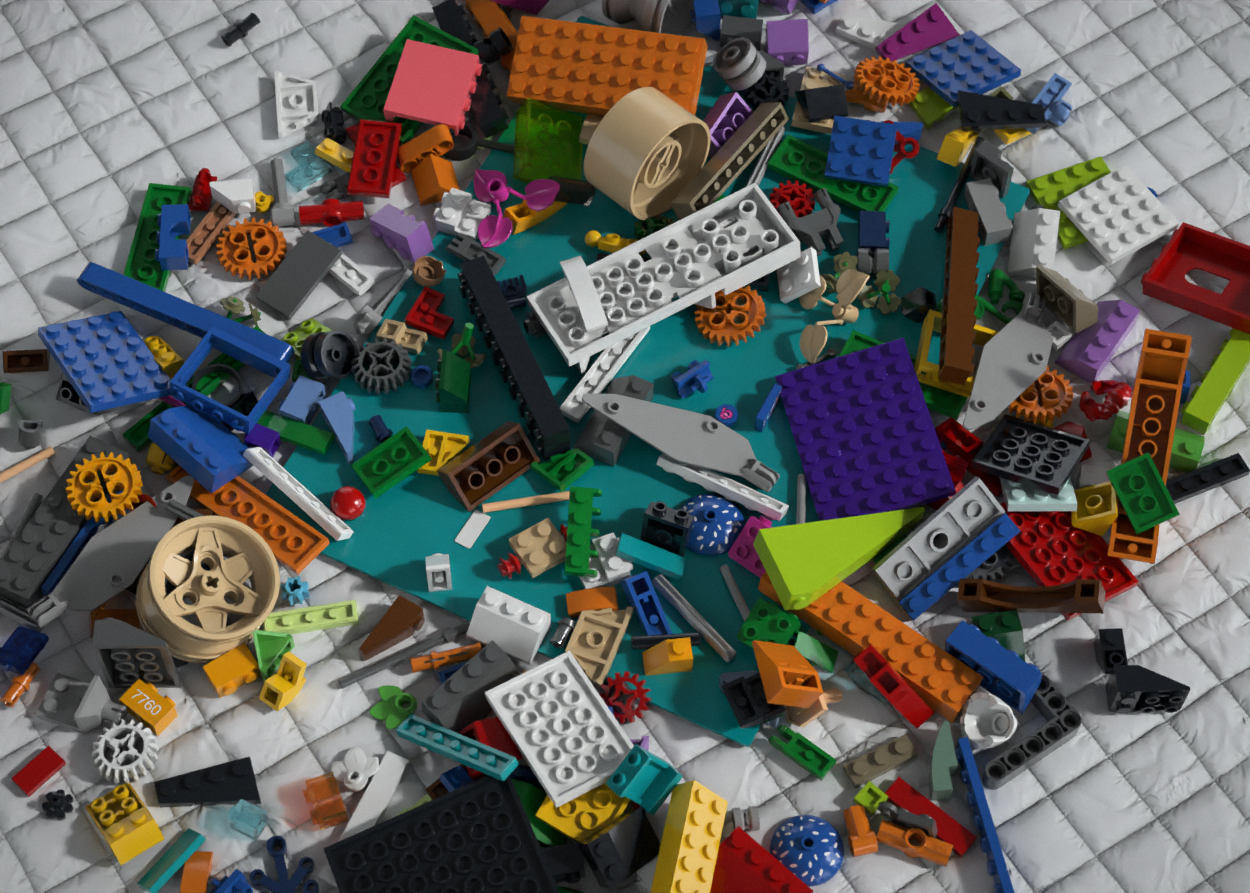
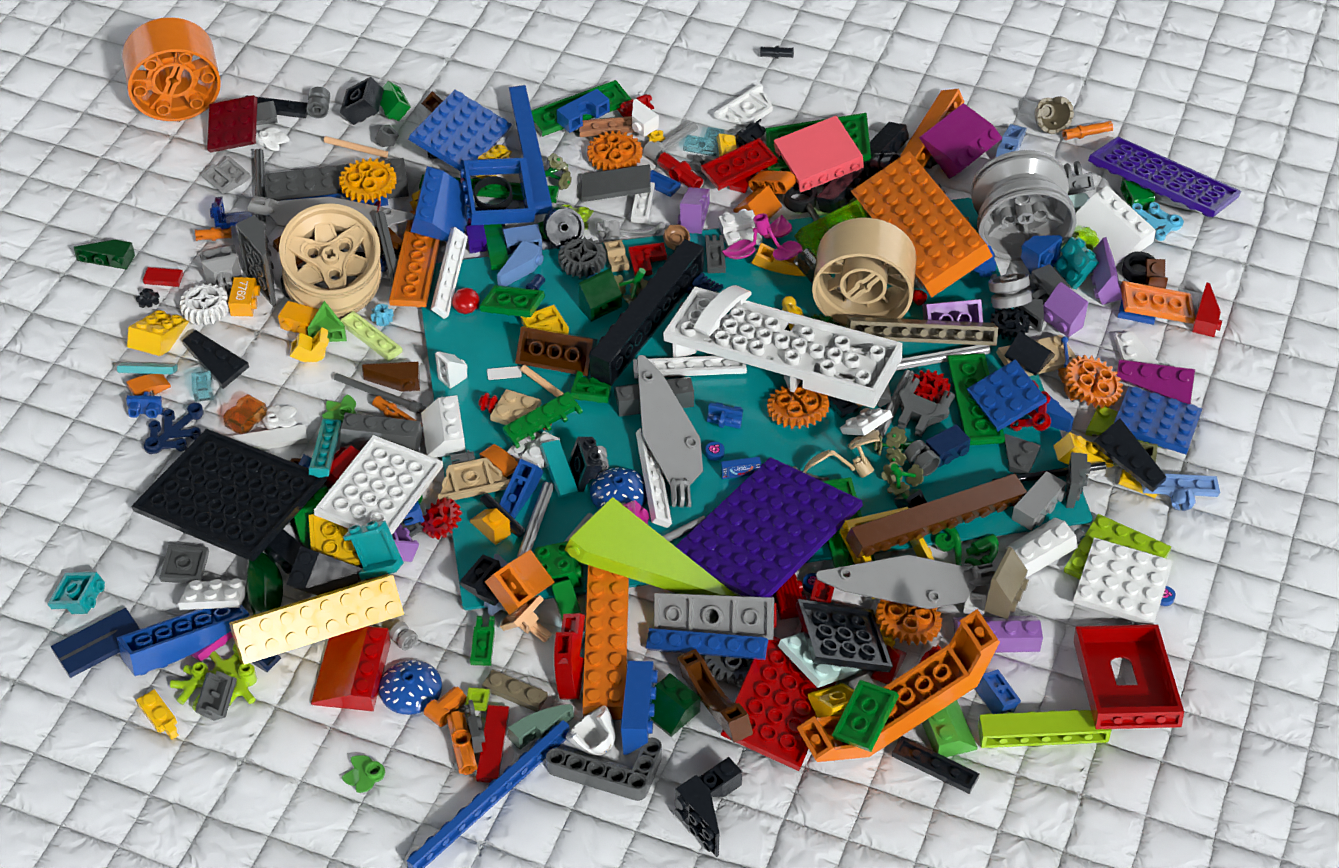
camera: 55 degrees right, 10 degrees down
(922, 189) = (1020, 454): none -> dark grey wing

